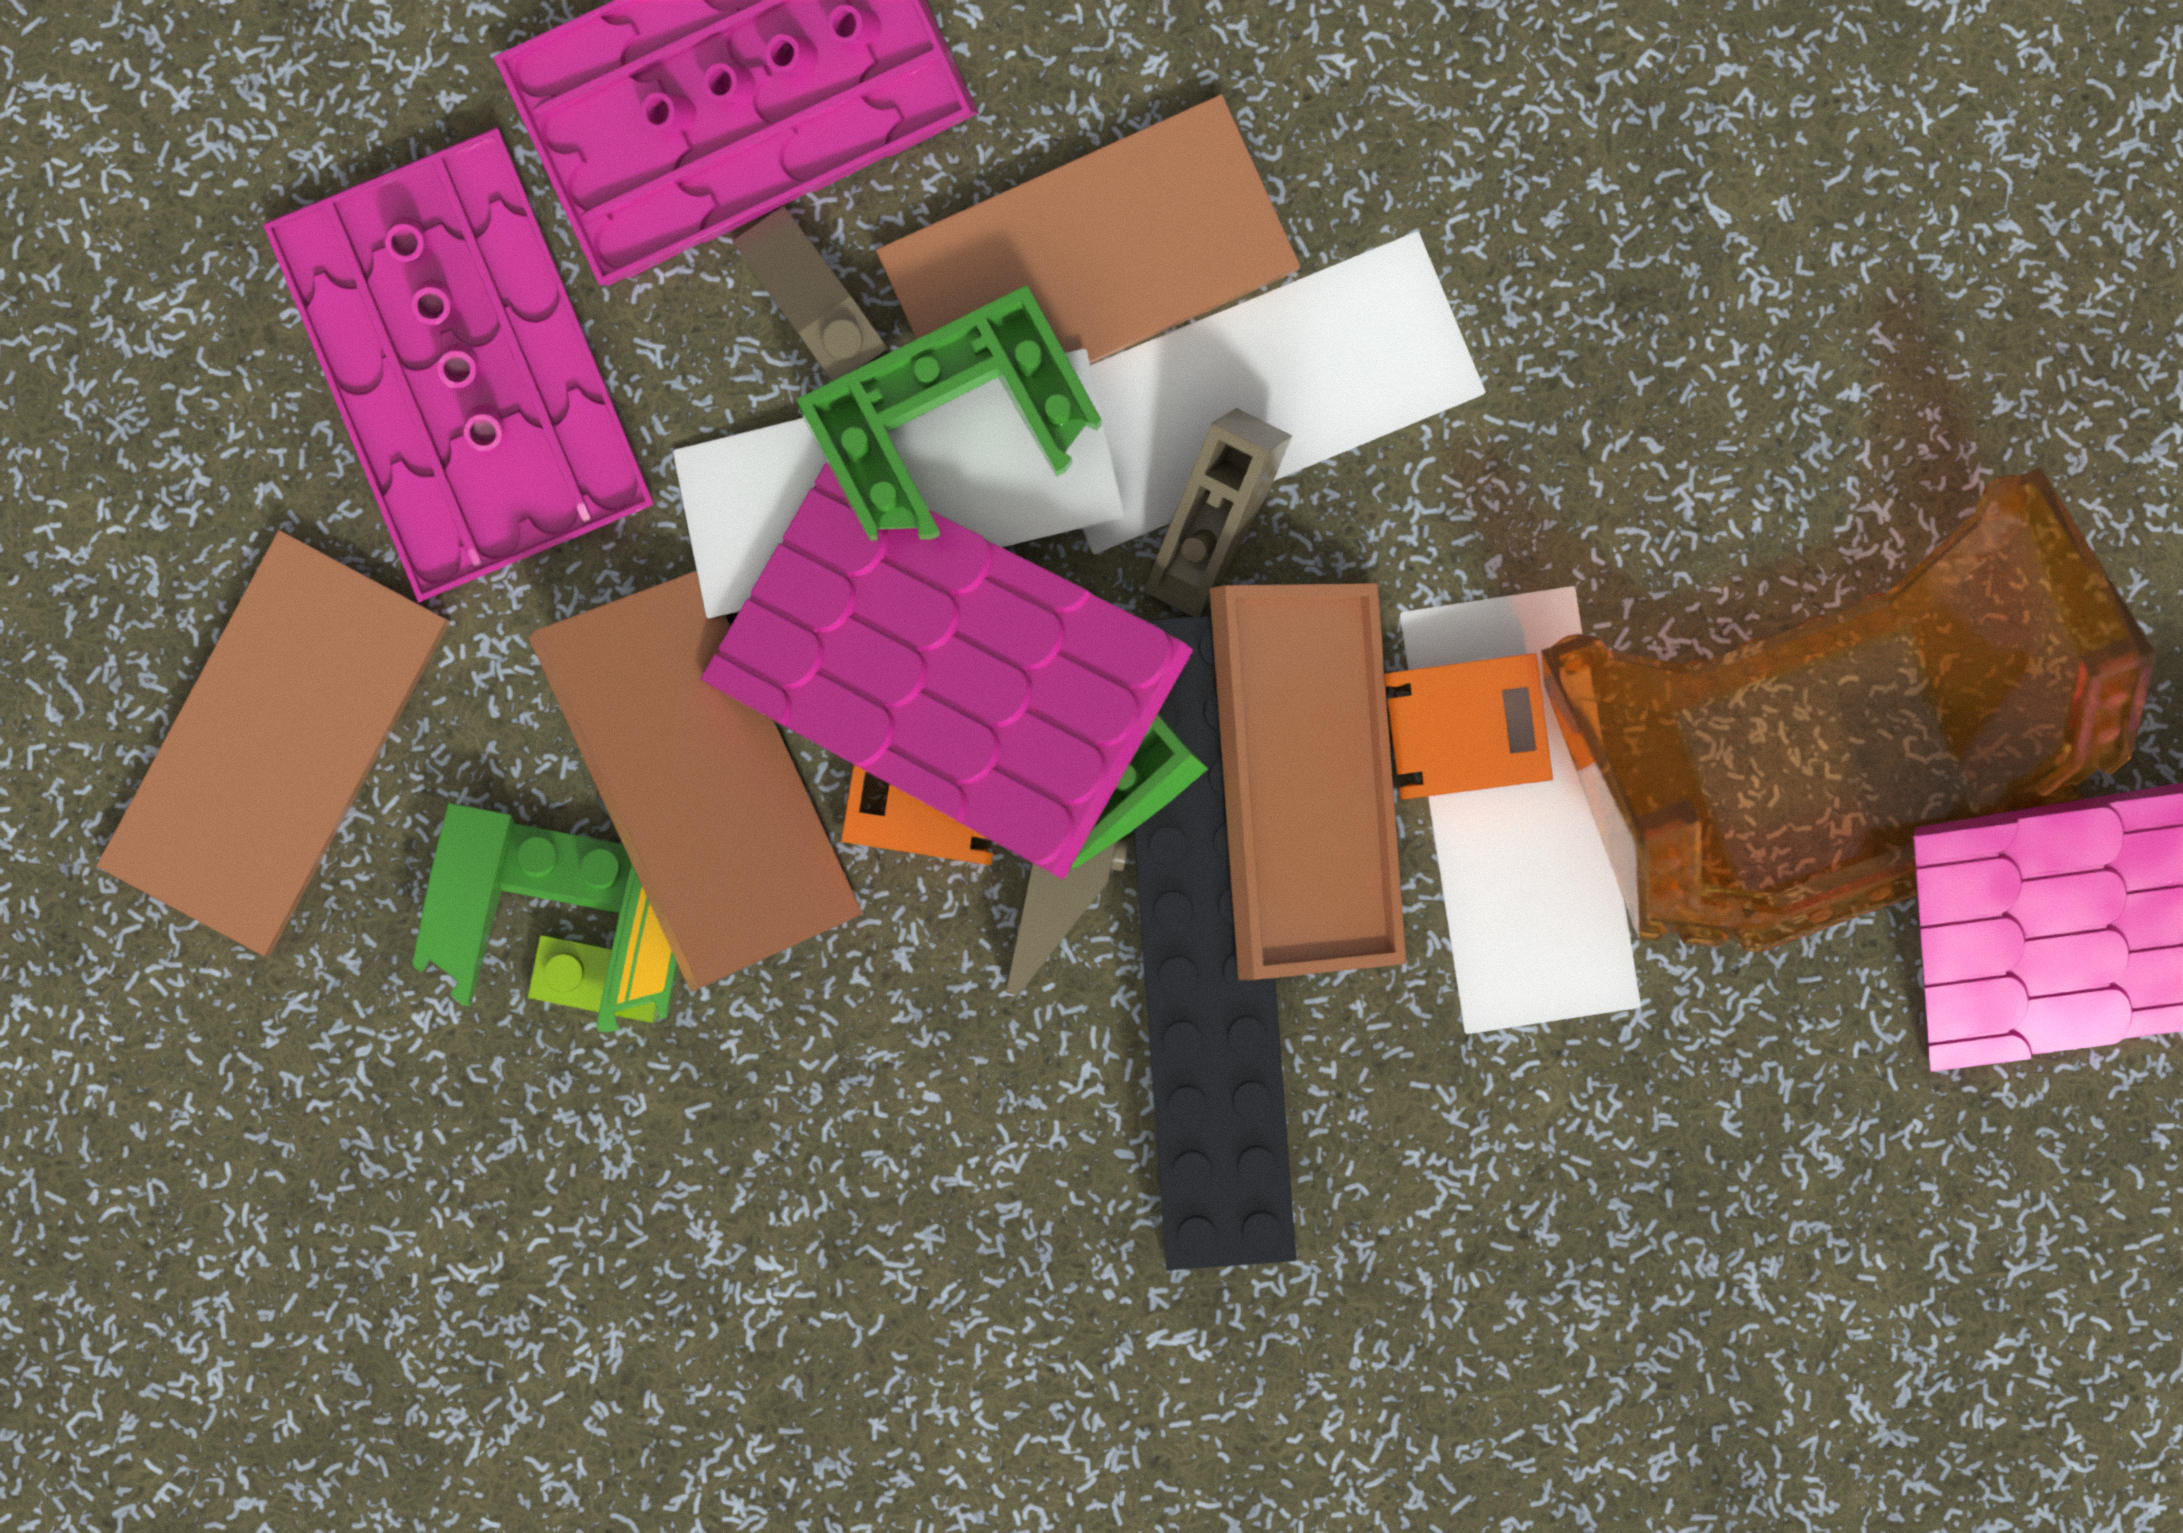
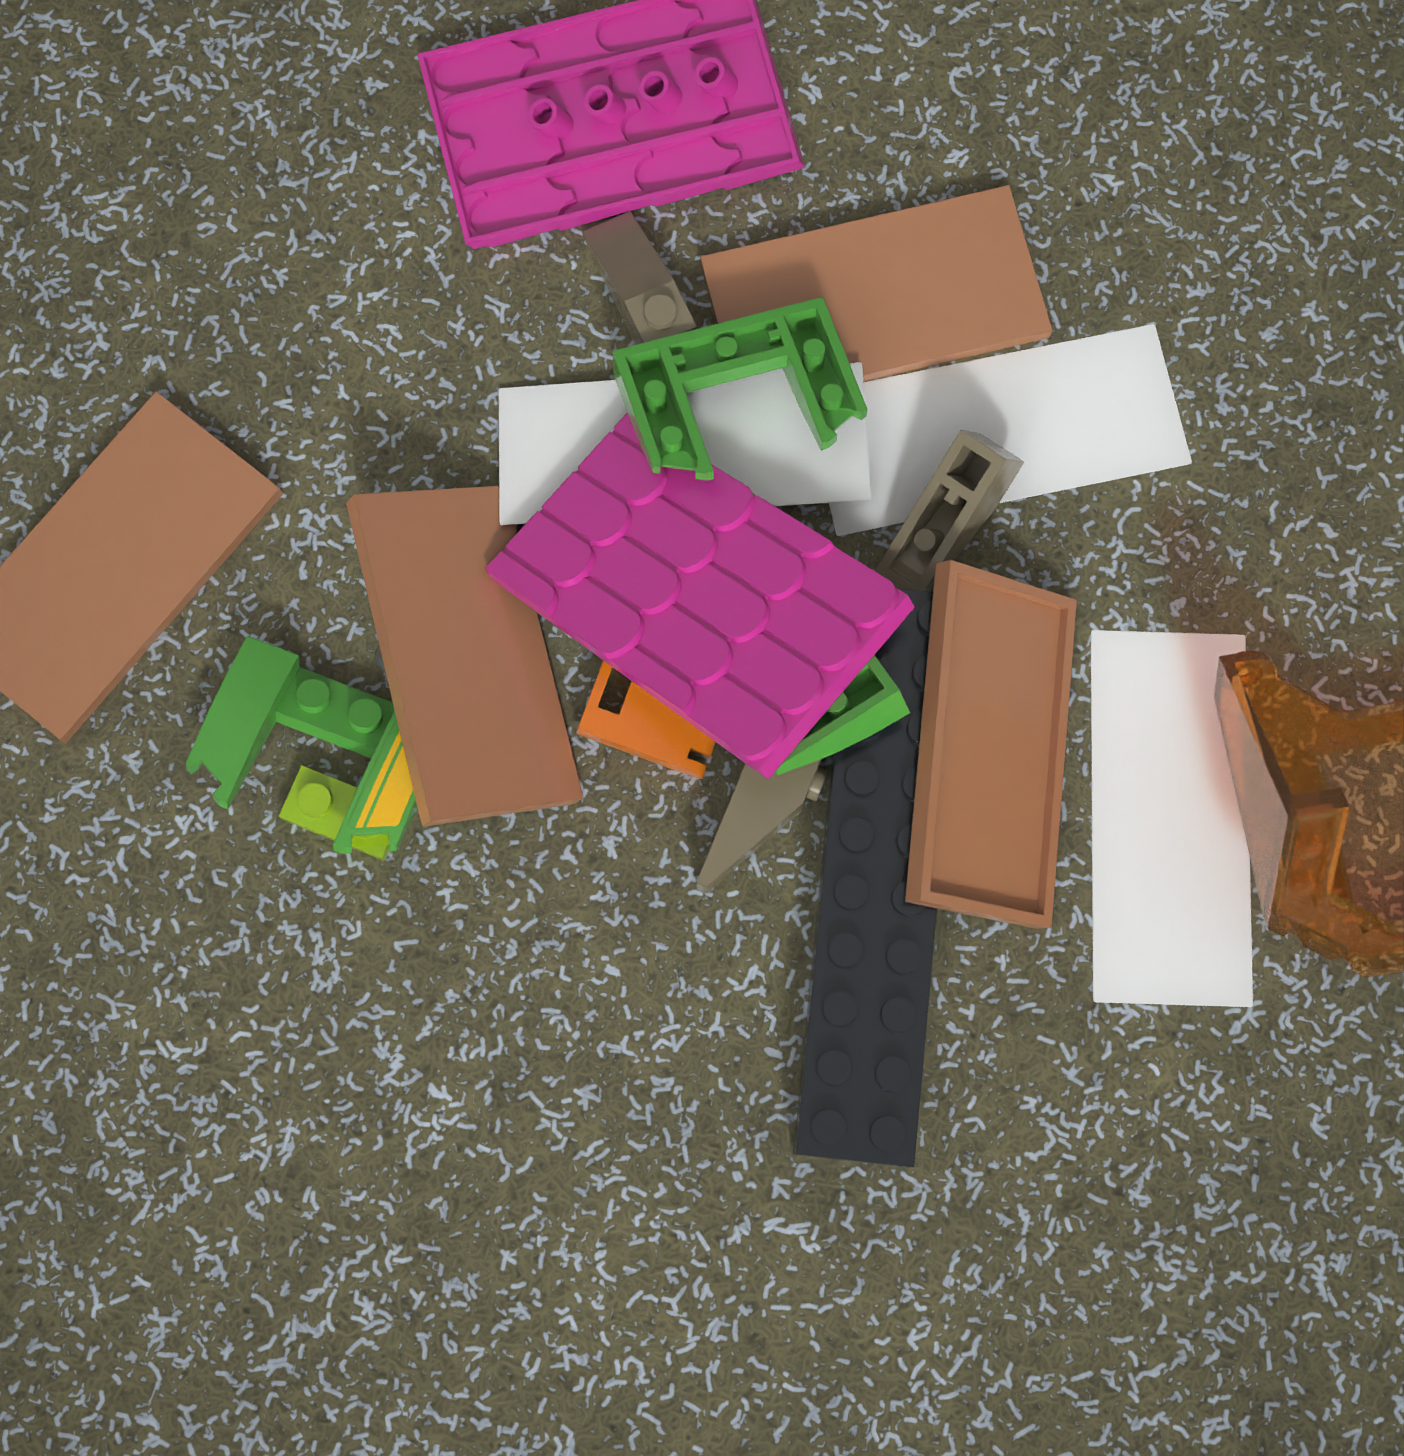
camera: 10 degrees right, 10 degrees down
(458, 363) = (335, 289): dark pink piece -> none
(1458, 726) = (1128, 732): orange container -> none

